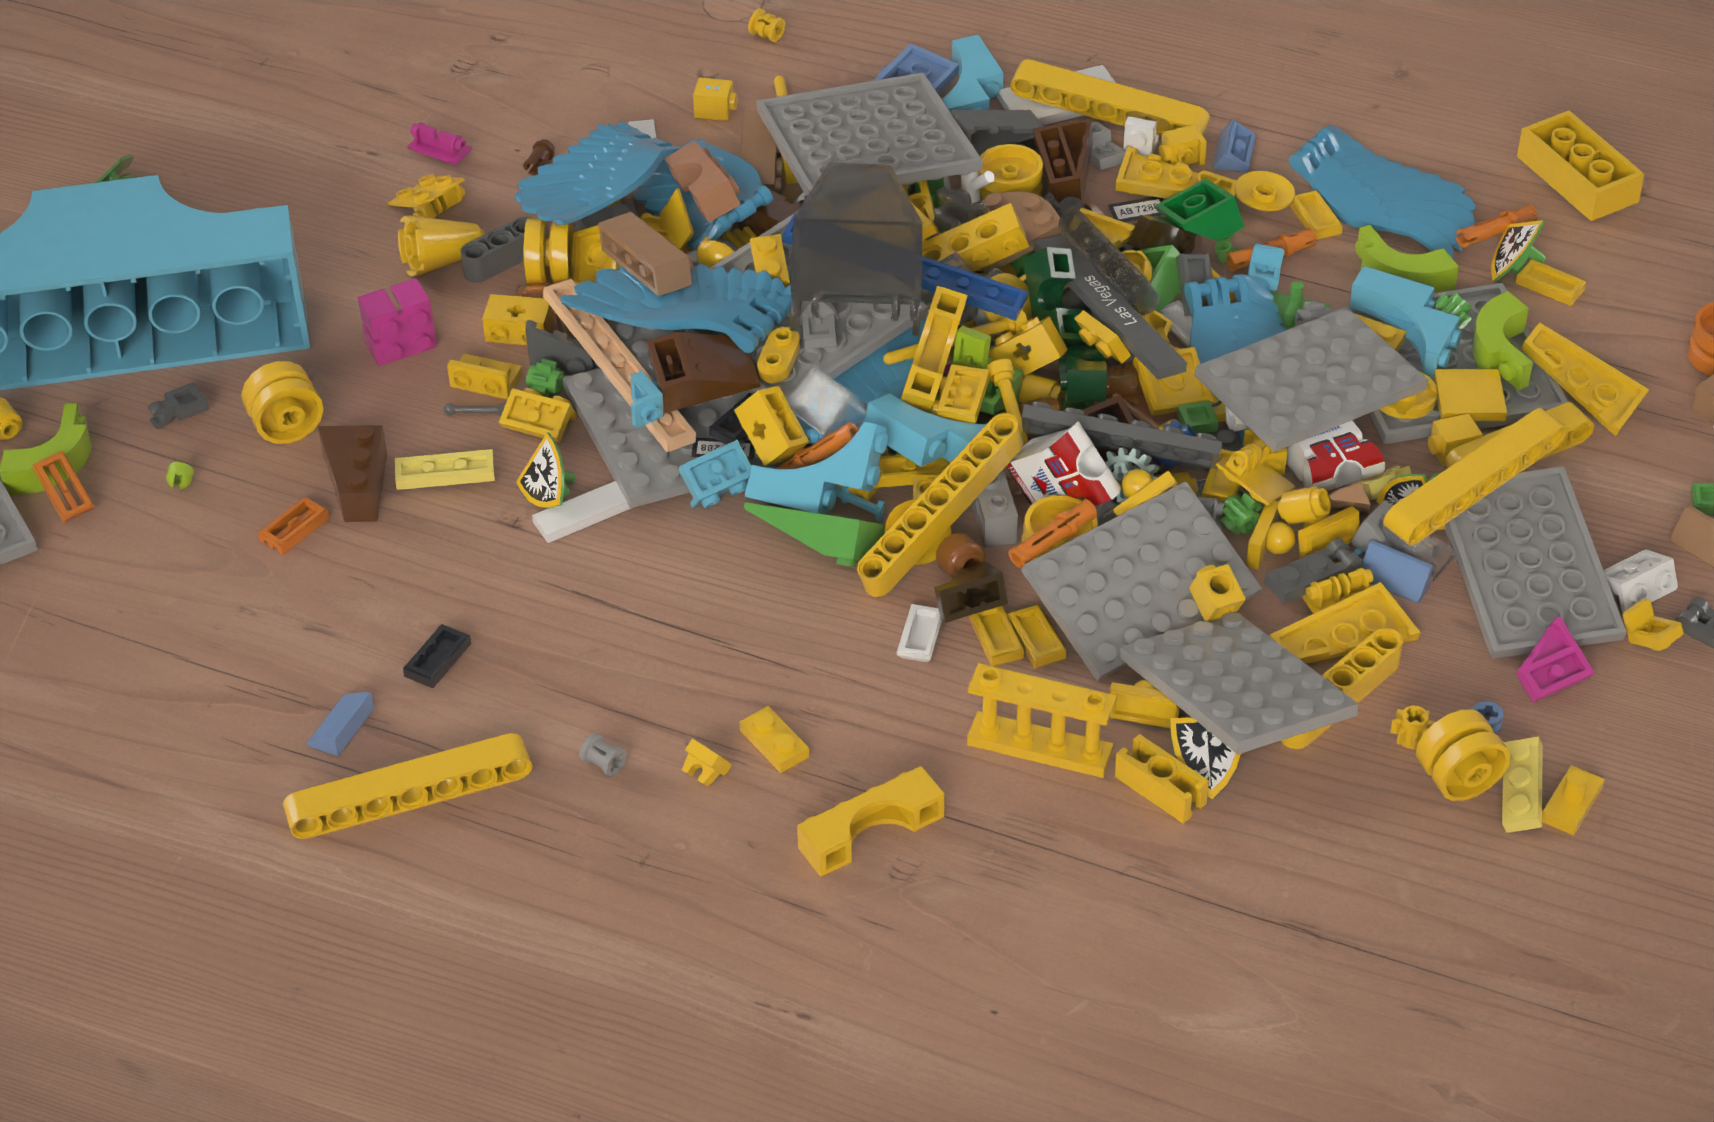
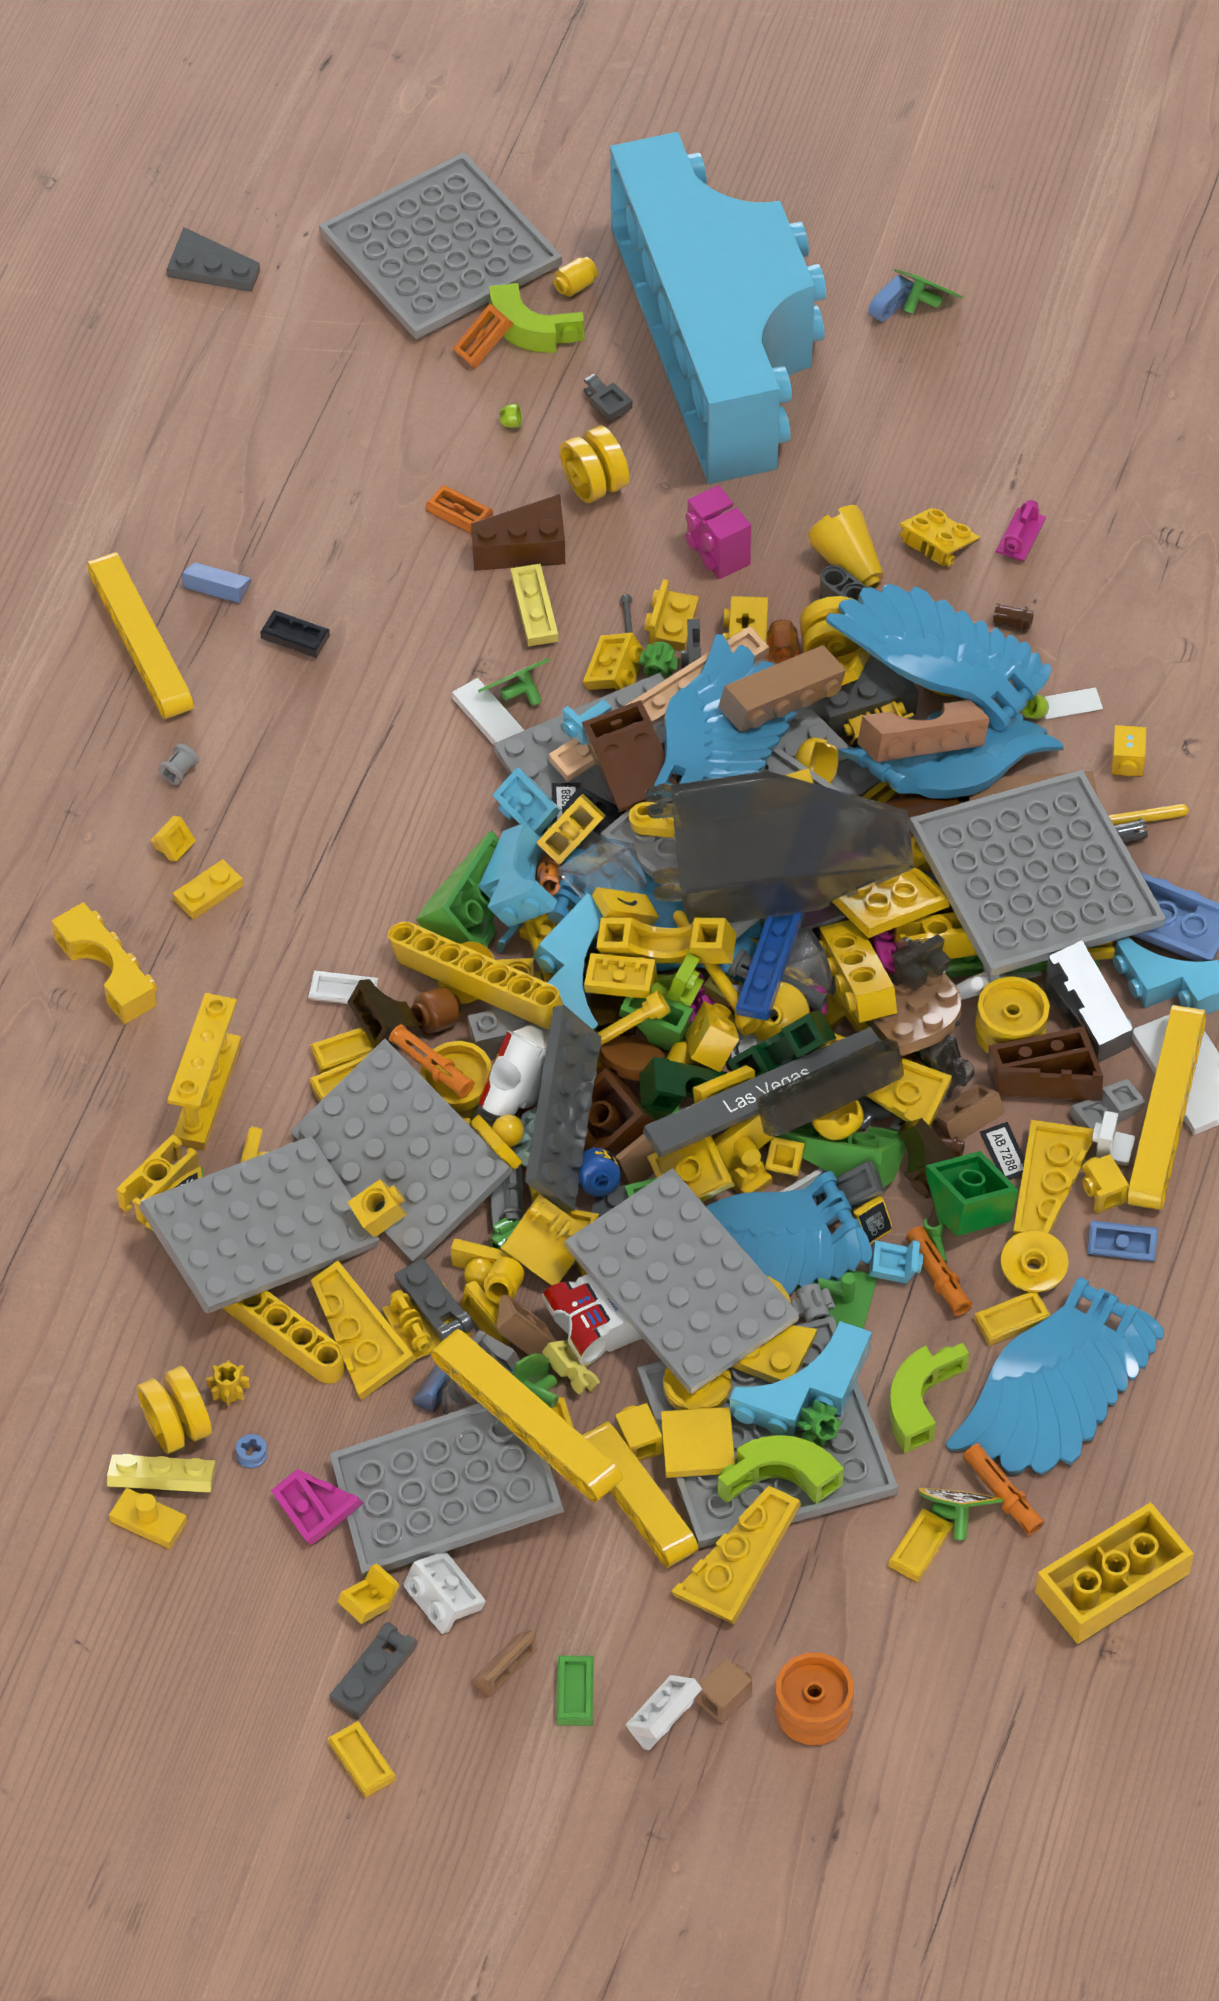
camera: 85 degrees right, 10 degrees up
(879, 386) = (625, 905): none -> yellow tile

